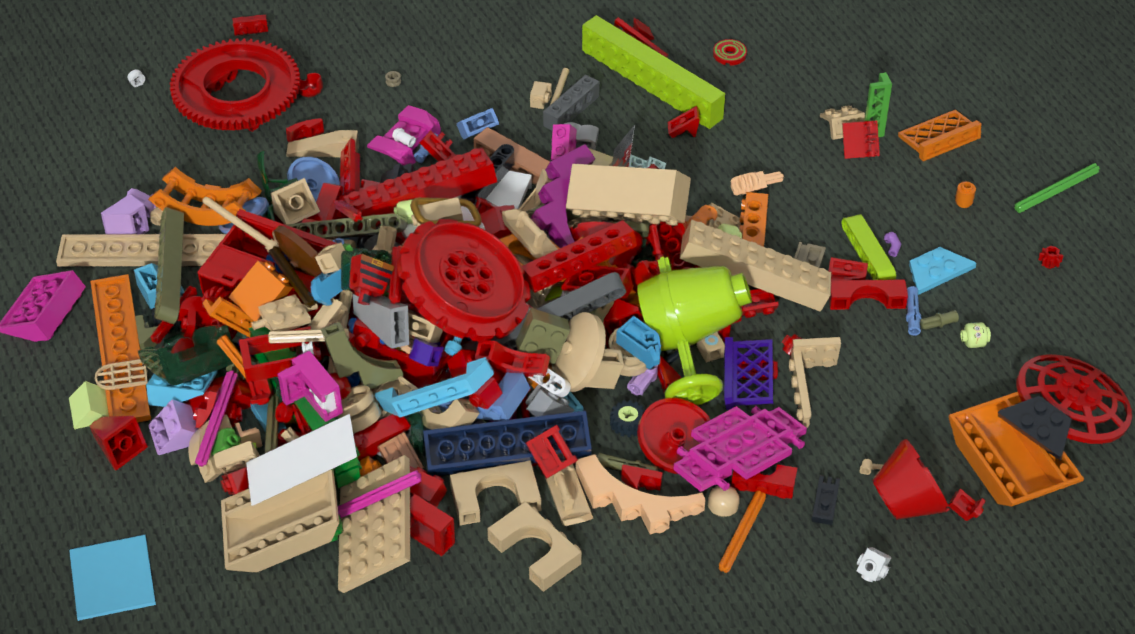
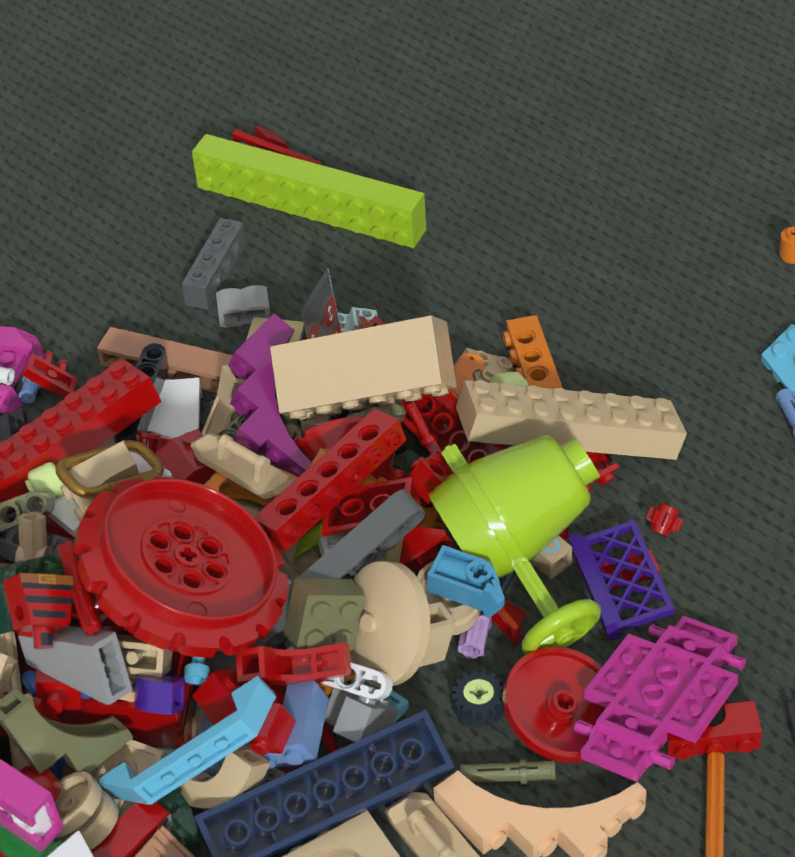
camera: 15 degrees left, 0 degrees up
(477, 123) = (94, 325): medium blue brick -> none
(540, 94) = (165, 262): tan brick -> none
(545, 454) = (391, 796): red plate -> none
(560, 85) = (187, 245): tan bar -> none
(563, 140) = (227, 321): dark pink brick -> none
(640, 477) = (530, 786): red slope -> none
(686, 121) = (383, 245): red slope -> none
(722, 47) = (398, 129): red tile -> none
(723, 502) = (667, 786): tan hair -> none
(754, 181) = (508, 304): light nougat gear -> none
(808, 354) = (690, 528): tan bracket -> none
(810, 253) = (627, 382): dark tan plate -> none
(845, 115) = (591, 190): tan bracket -> none
(847, 269) = (687, 392): red wing -> none
(860, 139) = (624, 208): red hinge -> none
(868, 248) = (701, 354): lime beam -> none
(881, 102) = (635, 158): bright green fence -> none
(889, 292) = (758, 406): red arch -> none
(892, 238) = (732, 338): medium lavender arm -> none
(942, 141) = (731, 181): orange fence -> none

